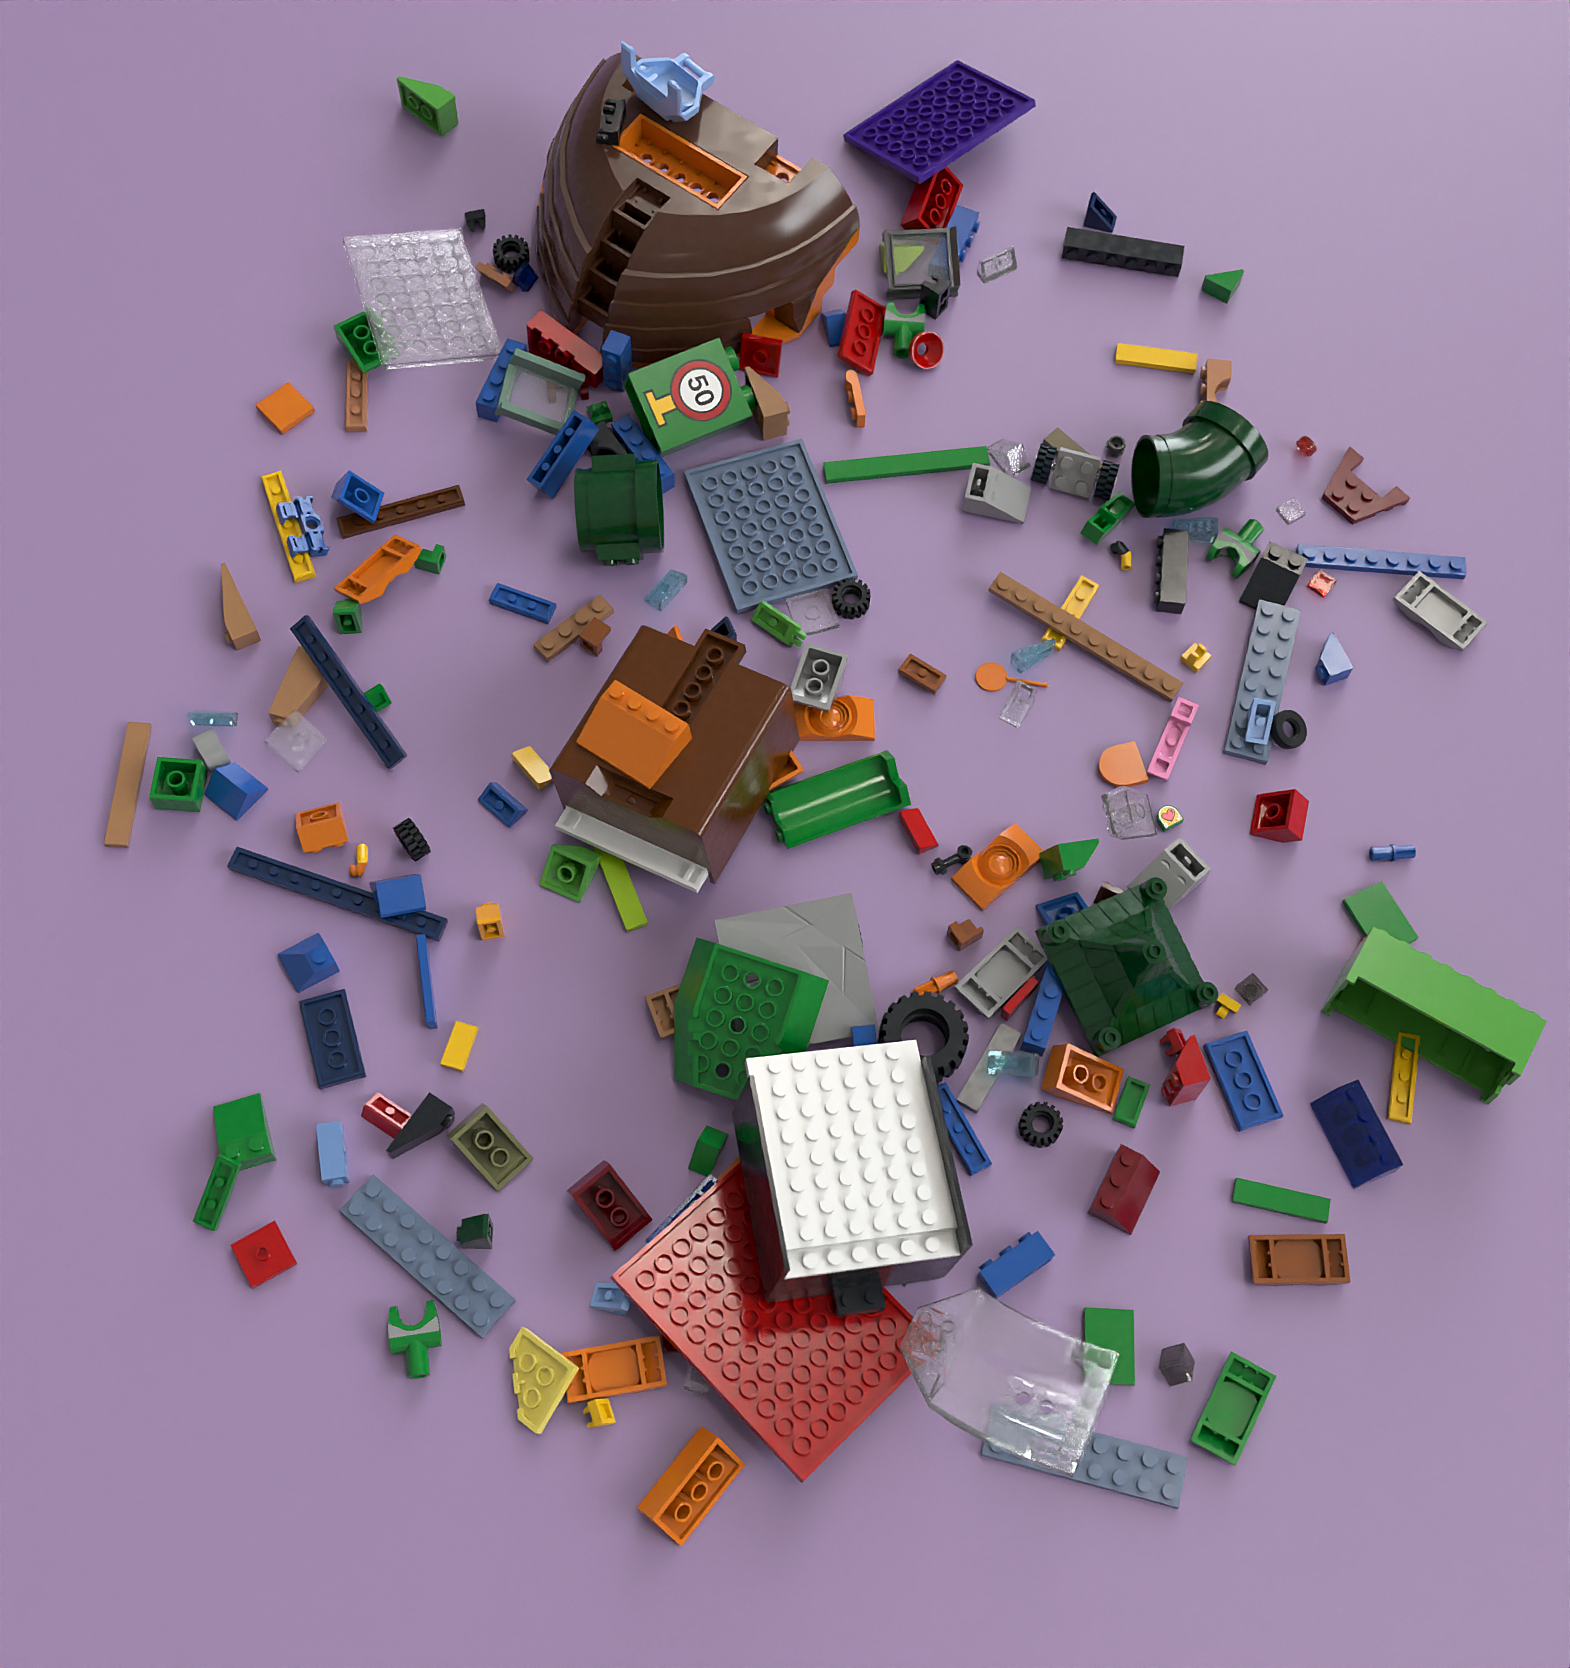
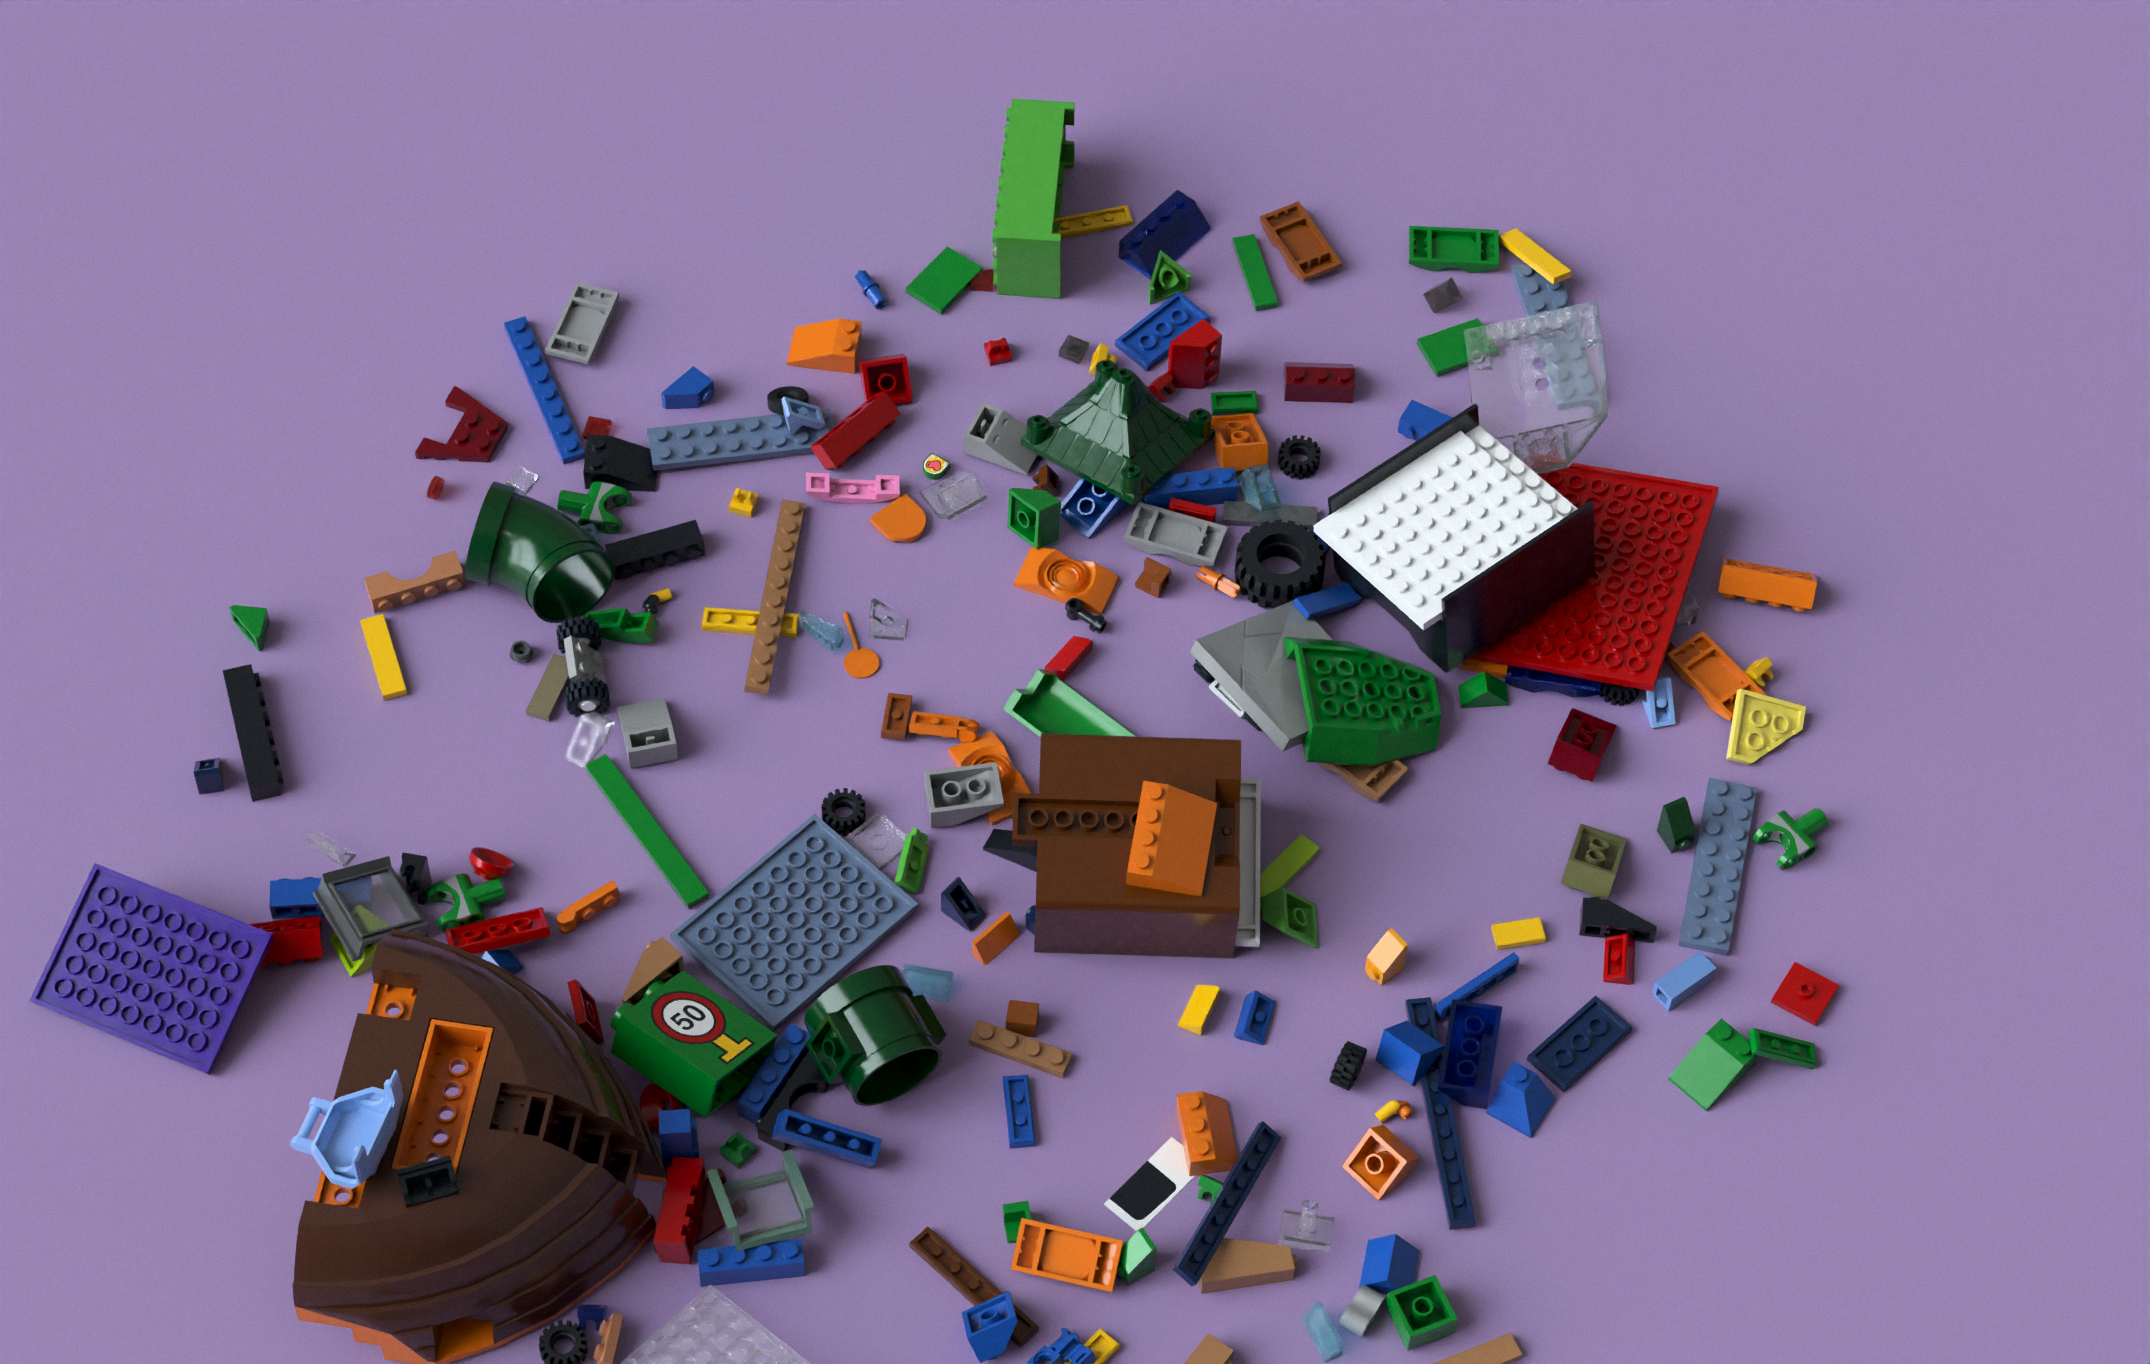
camera: 115 degrees left, 10 degrees down
(367, 937) = (1470, 1052): none -> clear blue slope
(408, 668) = (1151, 1186): none -> sticker
(422, 715) = (1206, 1133): none -> orange slope
(896, 700) = (943, 726): none -> orange hinge
(1185, 1482) = (1534, 256): none -> yellow tile
(1230, 765) = (855, 431): none -> red brick
(1276, 926) = (997, 352): none -> red tile
(1297, 1104) = (1167, 279): none -> bright green slope
(1338, 789) = (827, 345): none -> orange slope

